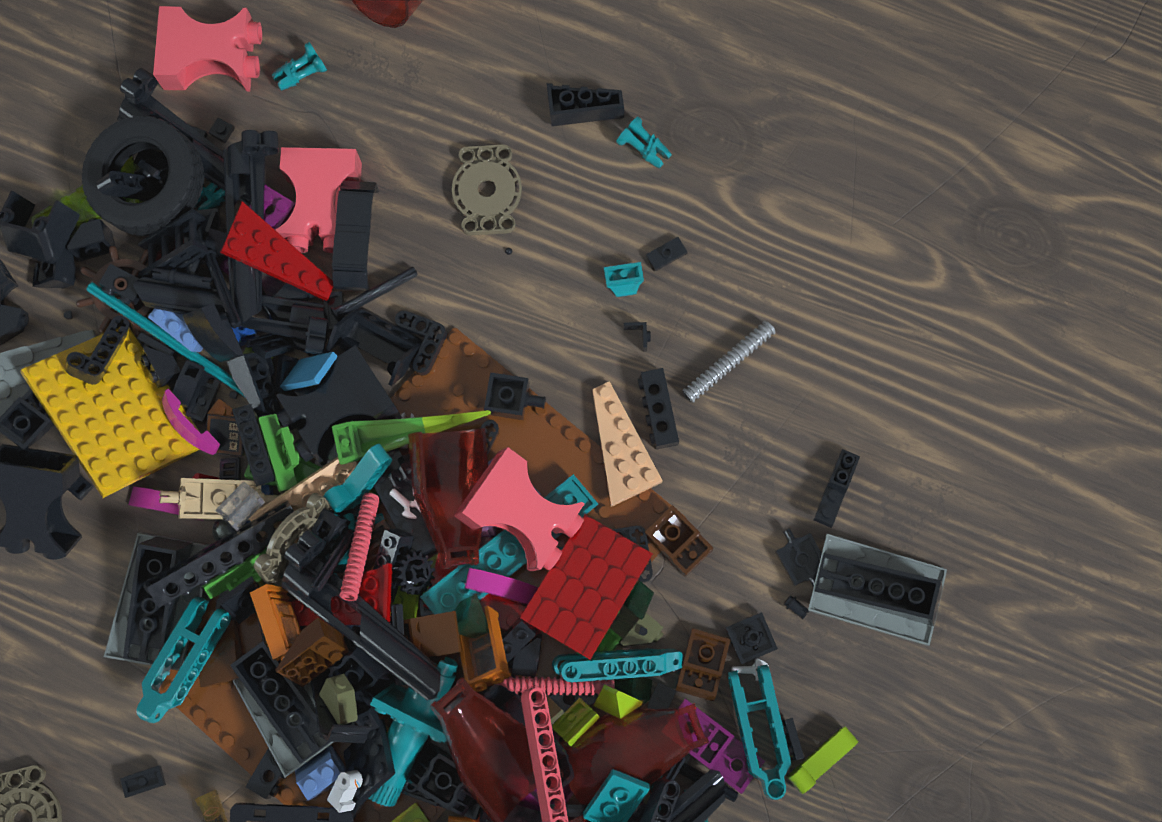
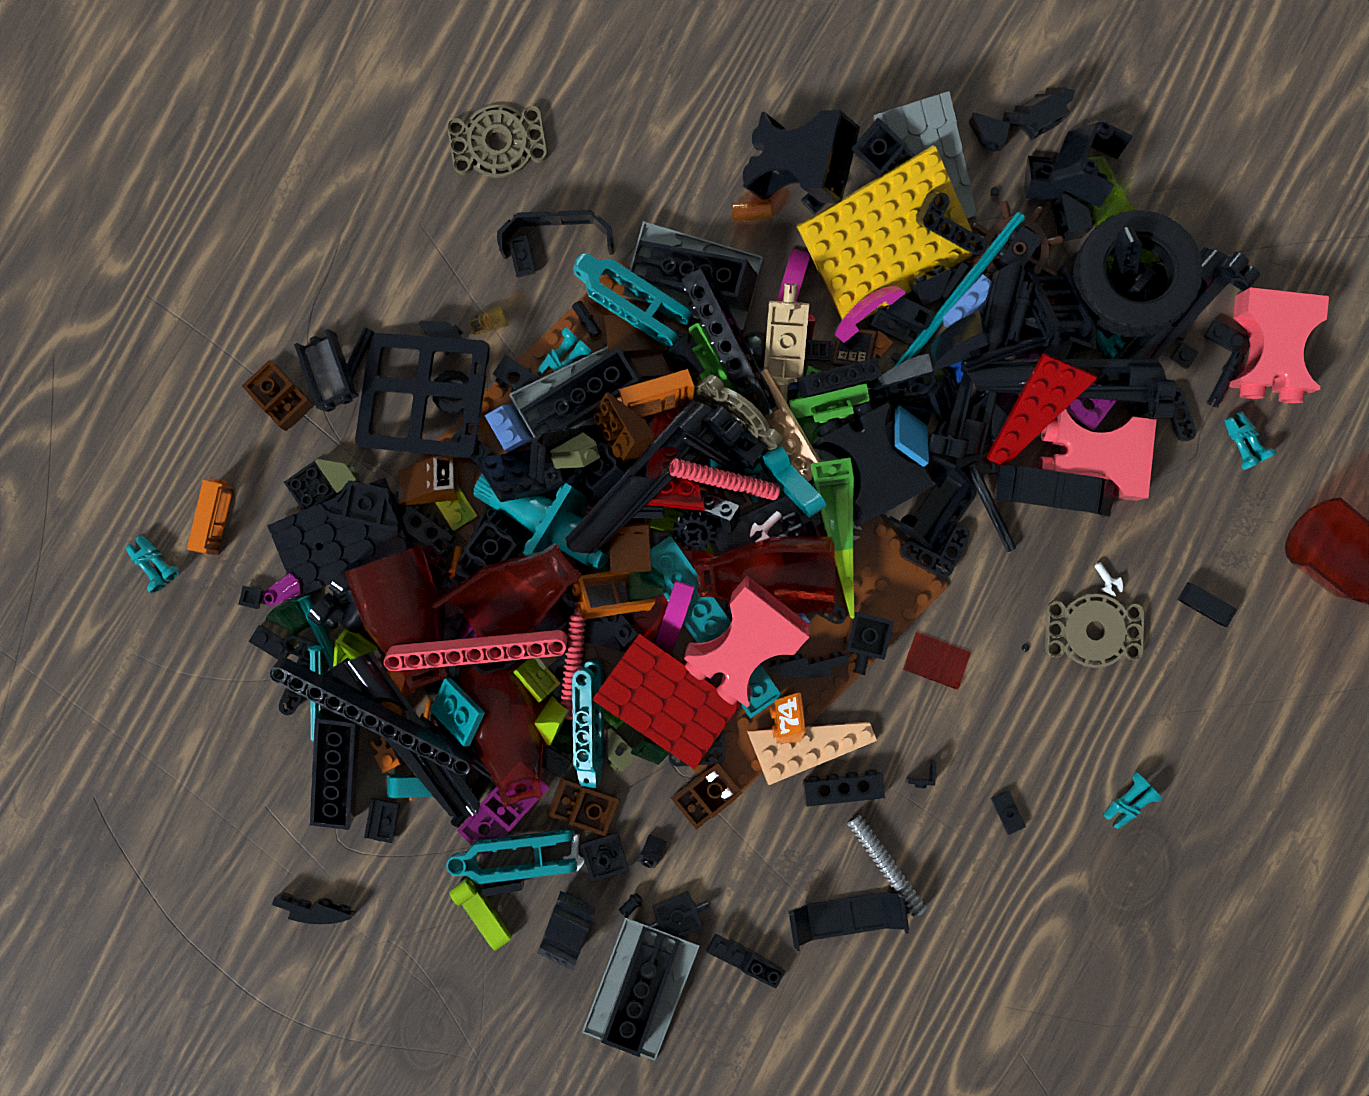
camera: 95 degrees right, 10 degrees up
(91, 548) = (751, 210): none -> clear orange pin
(101, 740) = (546, 218): none -> black windscreen
(202, 94) = (1226, 336): none -> black plate
(206, 706) = (586, 319): none -> black axle
(234, 88) = (1229, 370): none -> black pin
(240, 506) = (776, 362): clear brick -> none
(248, 737) = (553, 359): none -> teal piece
(284, 133) = (1180, 403): none -> black beam
(344, 791) = (491, 451): white leg -> none
(439, 180) = (1109, 580): none -> white bar
(454, 91) = (1207, 604): none -> black beam
(527, 332) = (936, 661): none -> clear red piece
(544, 458) = (800, 668): none -> black slope
(583, 104) = (1180, 741): black wedge -> none
(594, 465) = (788, 719): none -> orange slope
(624, 278) = (984, 766): teal slope -> none
(741, 590) = (652, 851): none -> black bracket
(782, 393) = (848, 917): none -> black windscreen
(828, 668) = (566, 930): none -> black slope

